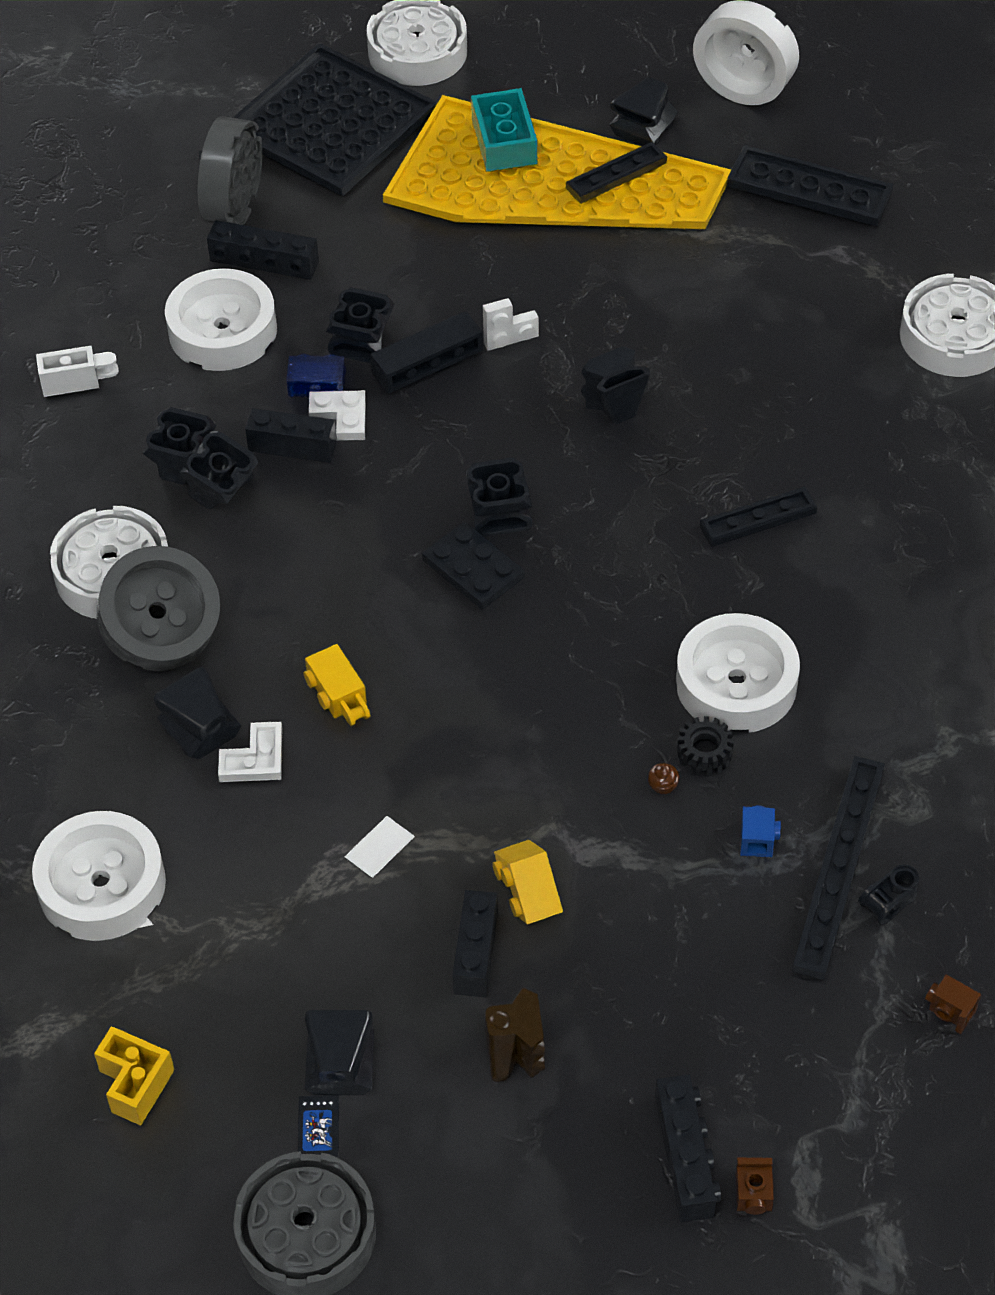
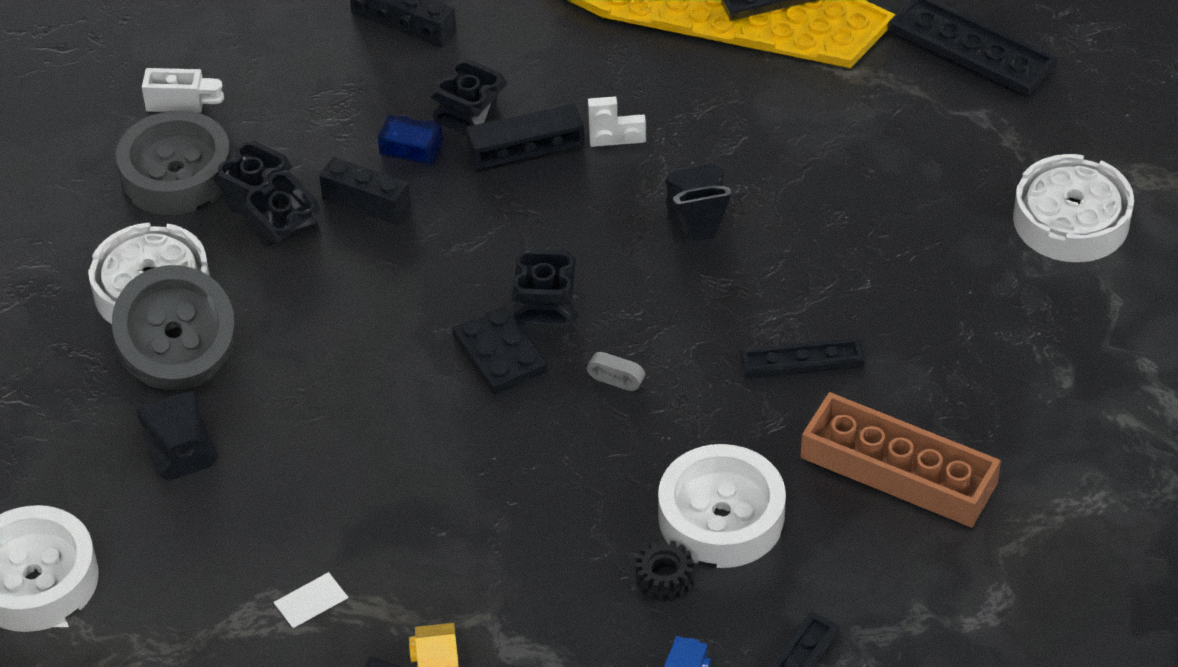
camera: 15 degrees right, 5 degrees down
(77, 425) = (160, 145): none -> dark grey brick
(224, 297) = (331, 47): white brick -> none
(259, 761) = (221, 494): white plate -> none
(337, 684) = (323, 435): yellow brick -> none
(344, 406) = (428, 175): white plate -> none
(592, 564) = (615, 371): none -> light grey beam
(663, 778) = (611, 593): reddish brown plate -> none
(886, 594) = (900, 459): none -> nougat brick

